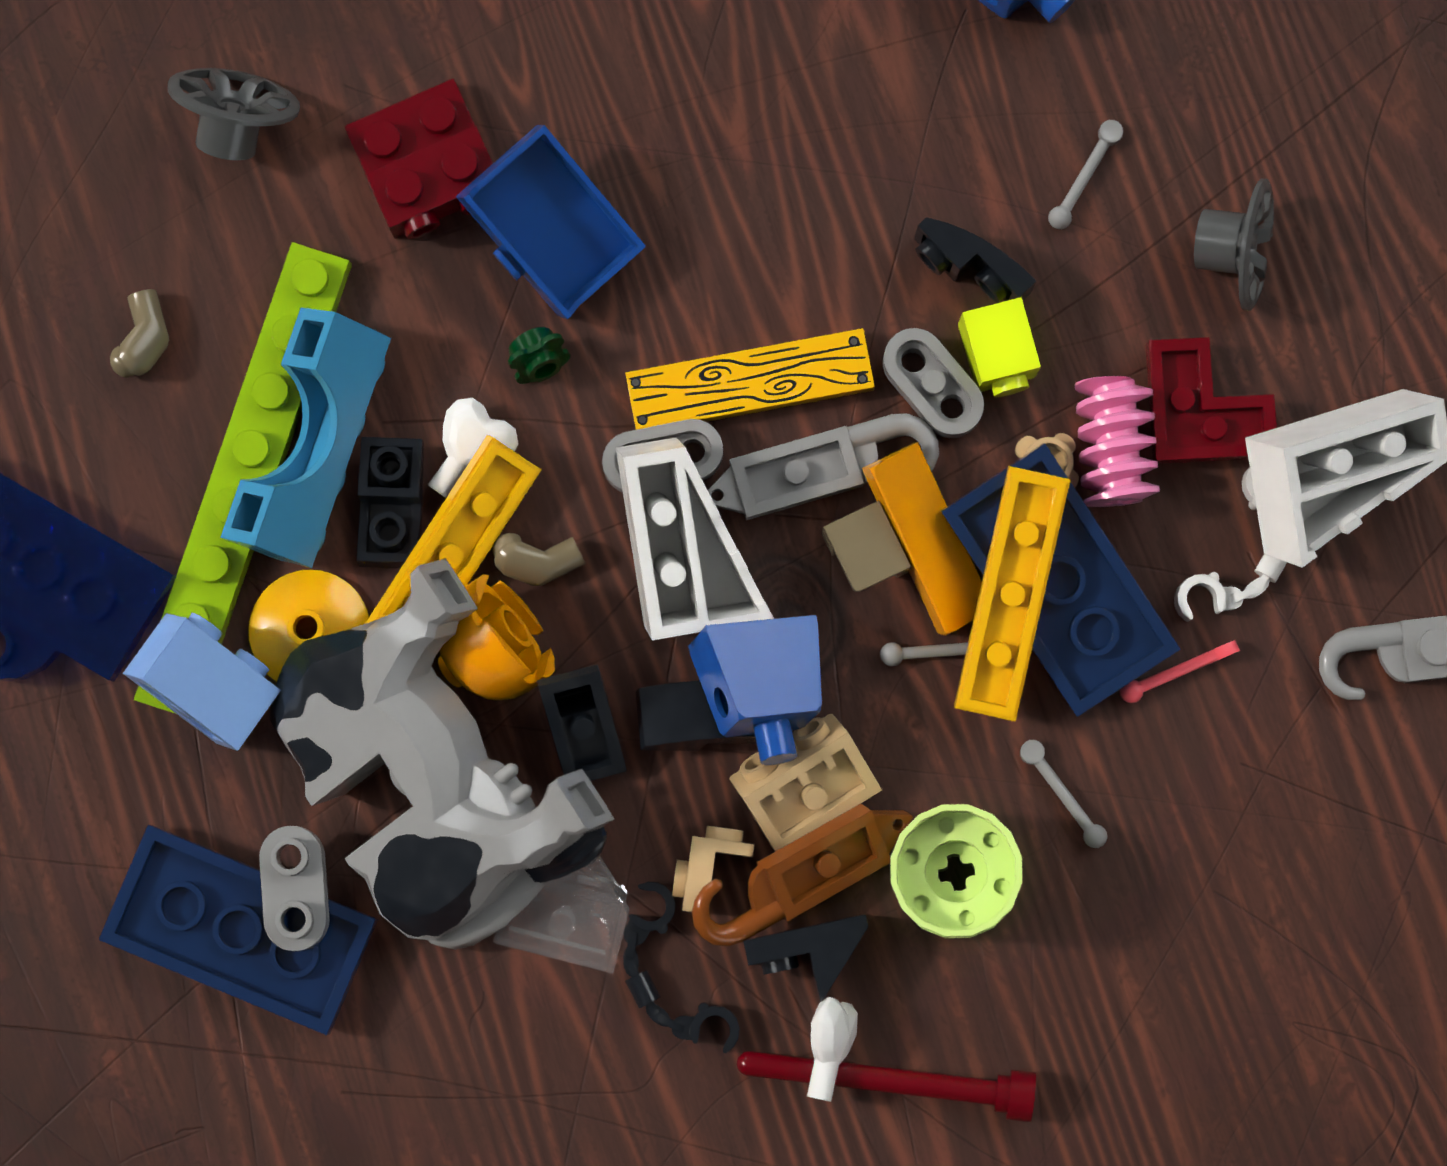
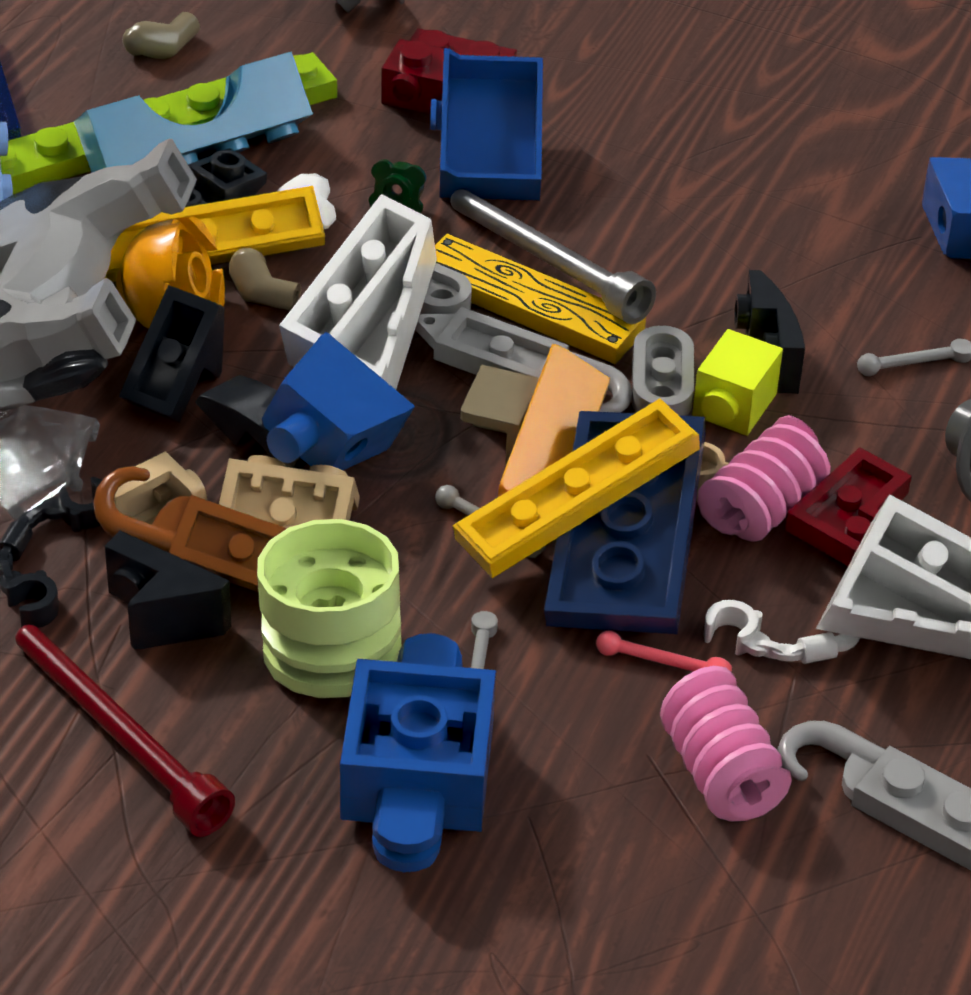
camera: 40 degrees right, 40 degrees down
(831, 1040) = (107, 650): white rock -> none
(837, 332) = (624, 293): none -> flat silver piece
(1123, 929) = (417, 749): none -> blue brick
(1305, 731) = (724, 745): none -> bright pink piece

